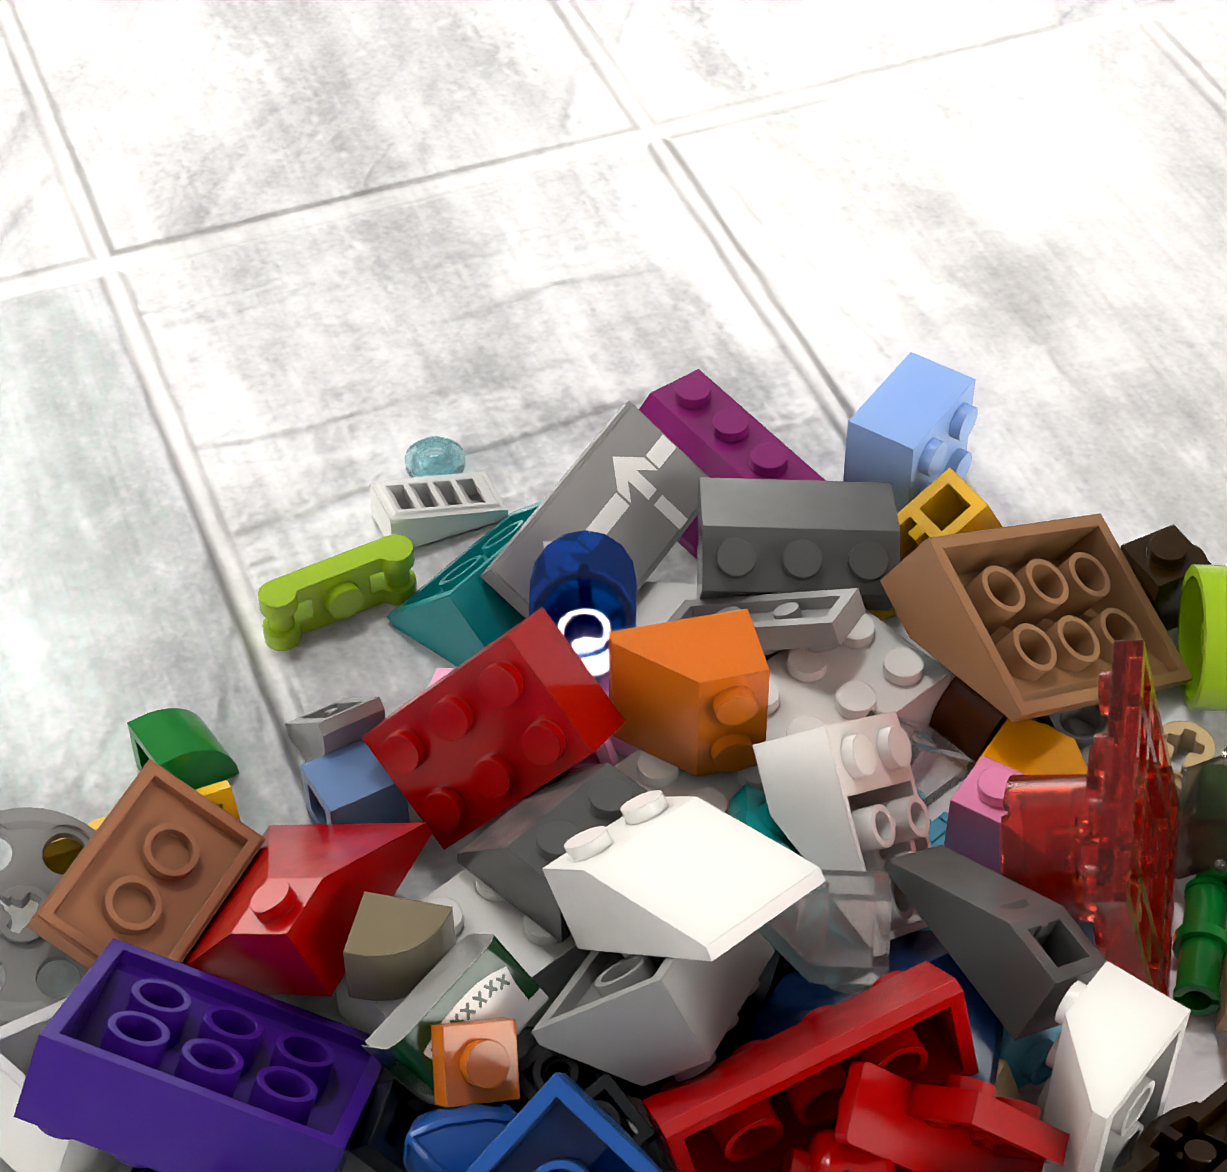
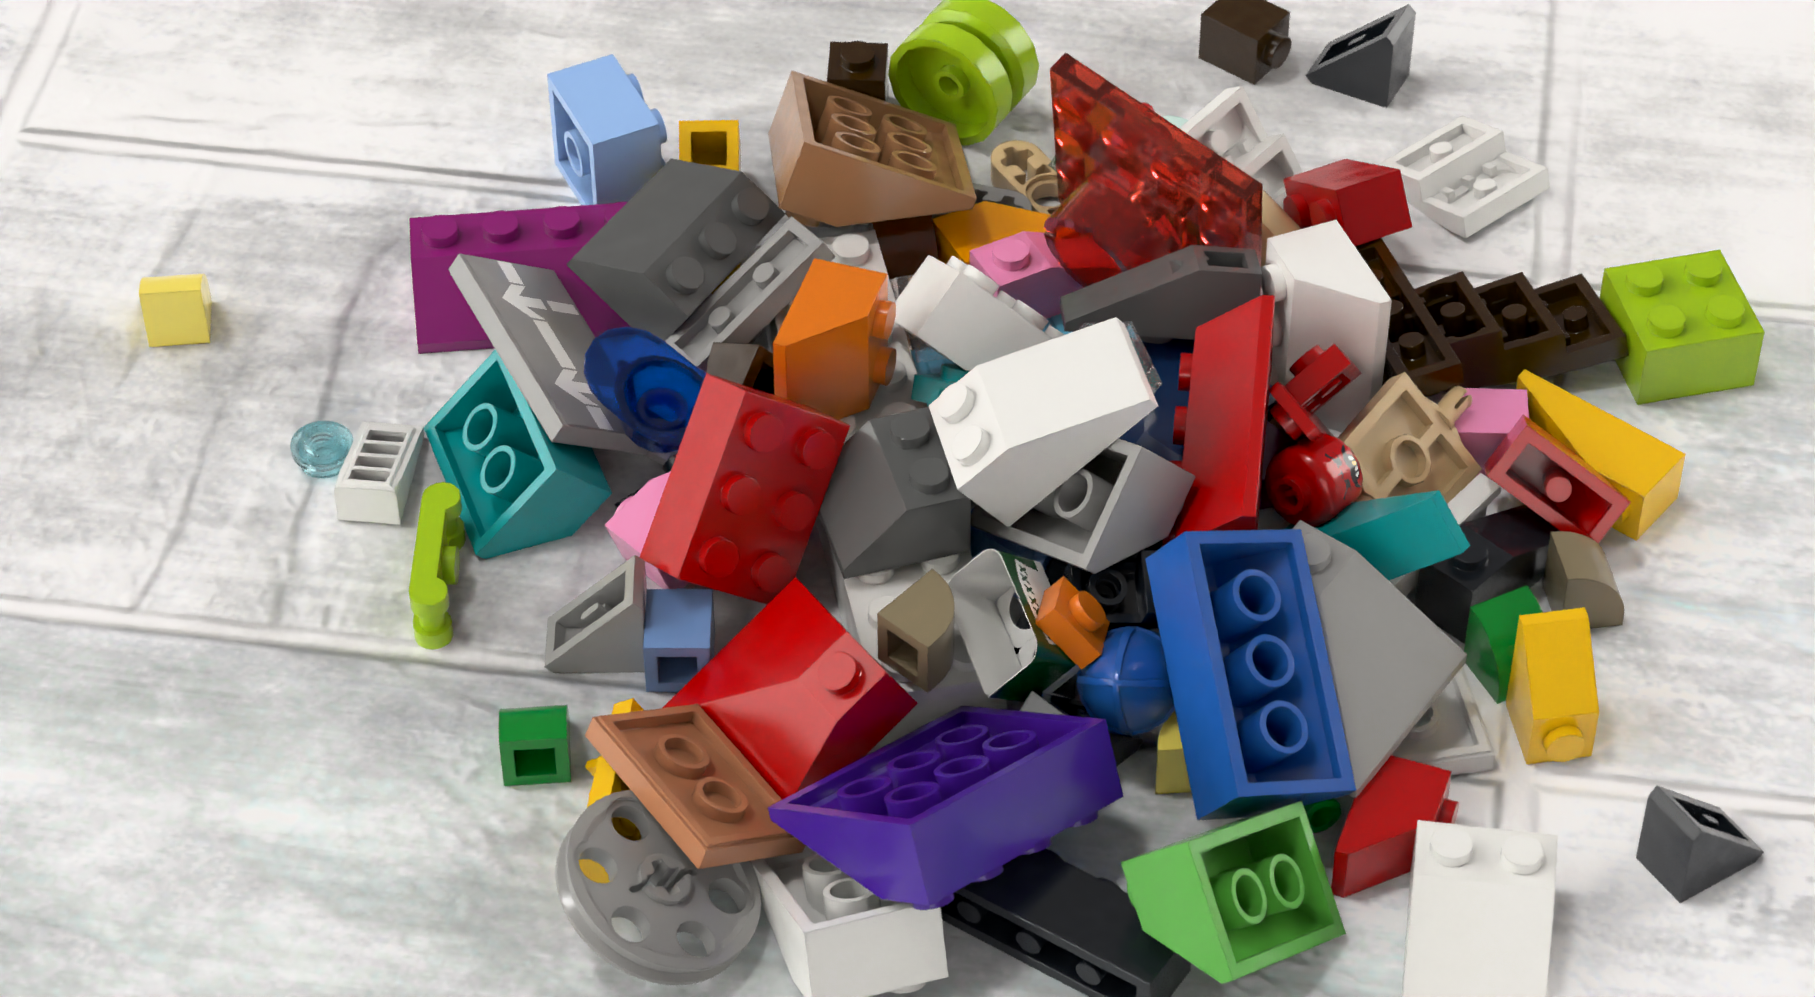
camera: 60 degrees left, 0 degrees up
(519, 302) = (176, 309): none -> light yellow brick

